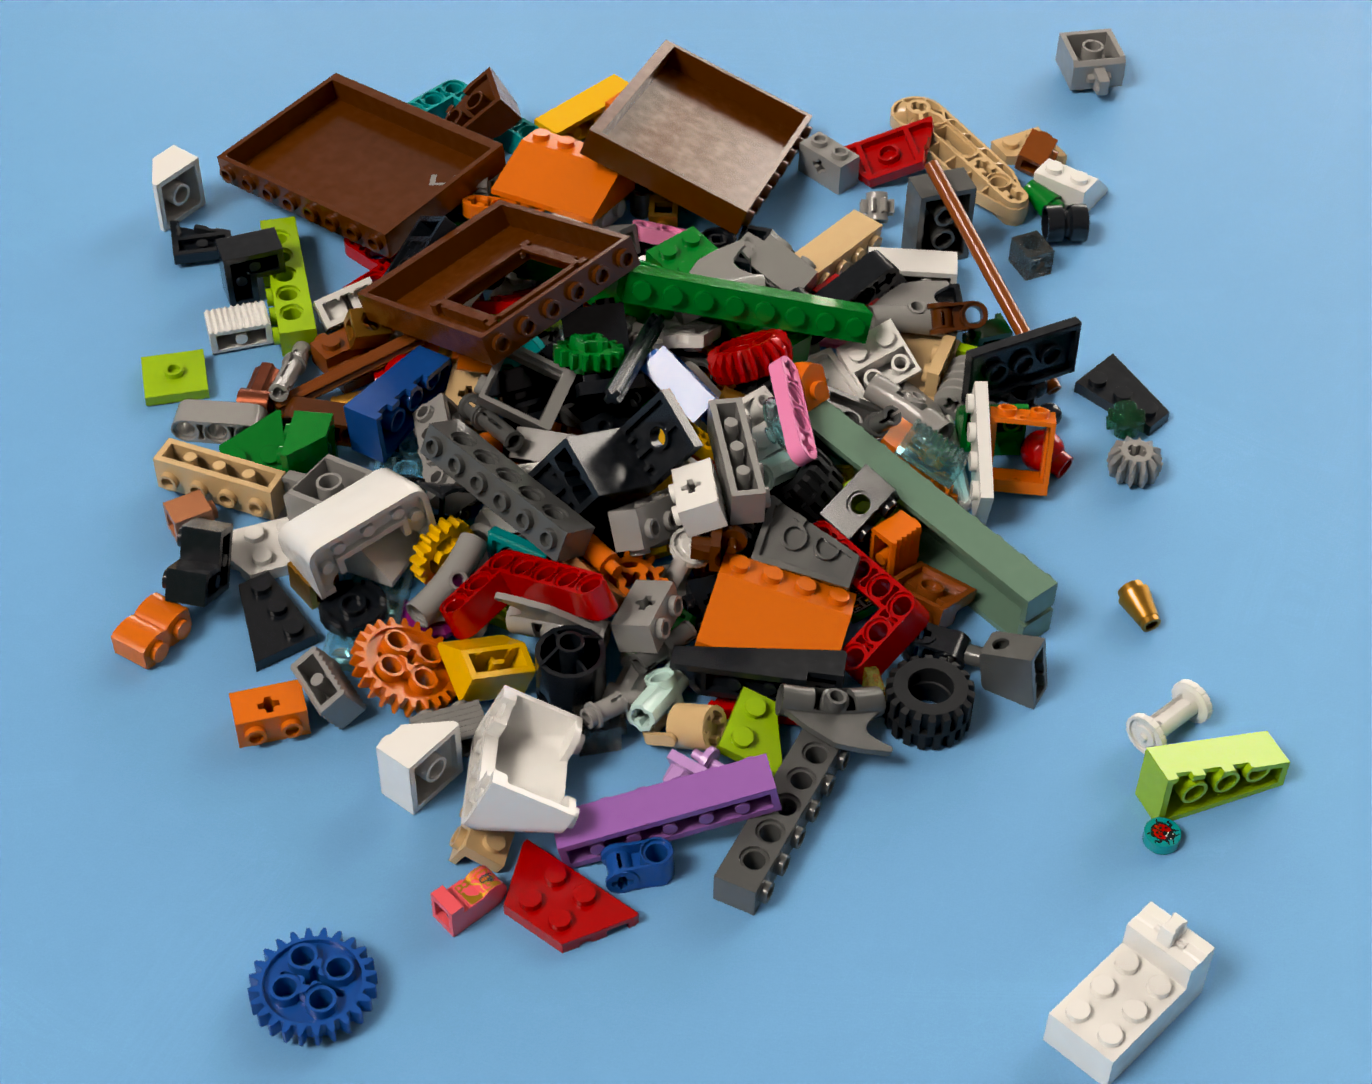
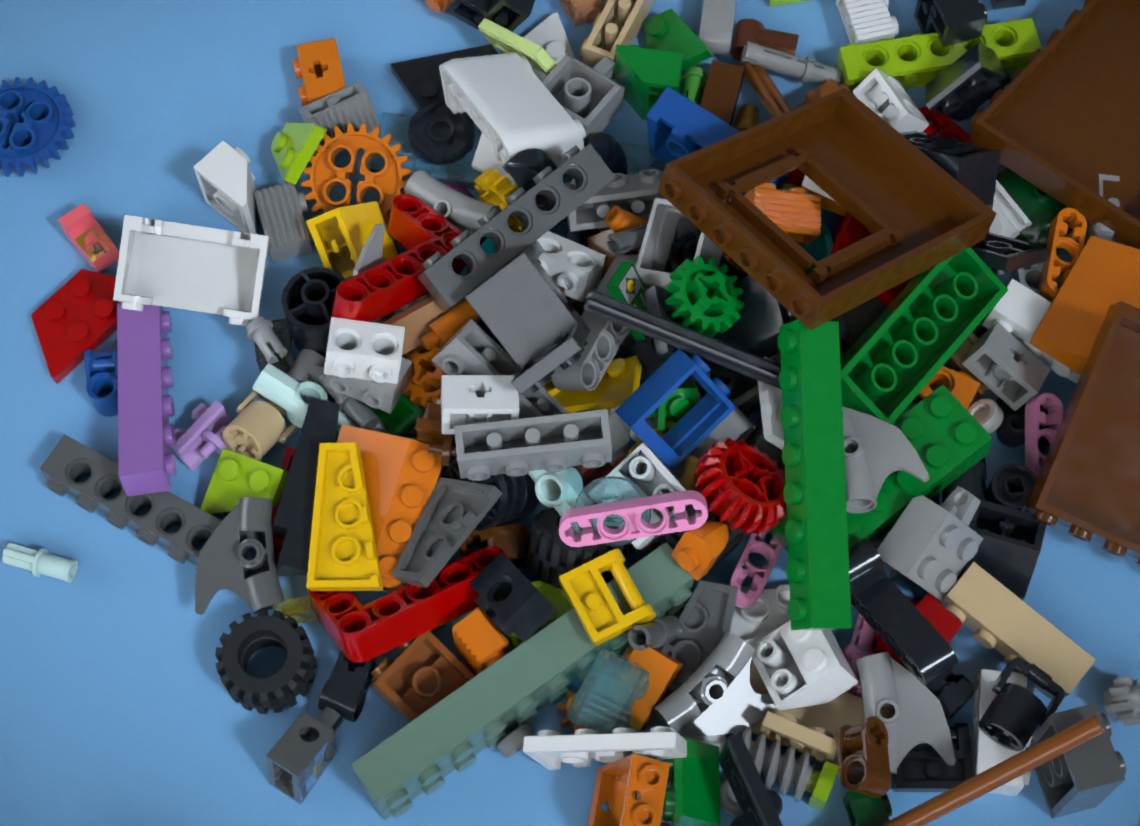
camera: 95 degrees right, 20 degrees up
(260, 543) = (510, 42): none -> yellowish green tile
(330, 254) = (967, 84): none -> black slope
(370, 710) = (295, 147): none -> lime wing
(565, 423) = (629, 288): none -> tile
(640, 592) = (364, 350): none -> white brick
(812, 626) = (342, 530): none -> yellow wing
(847, 900) = (40, 562): none -> light aqua axle
(857, 441) = (596, 604): none -> yellow plate
(906, 240) = (1015, 710): none -> black piece

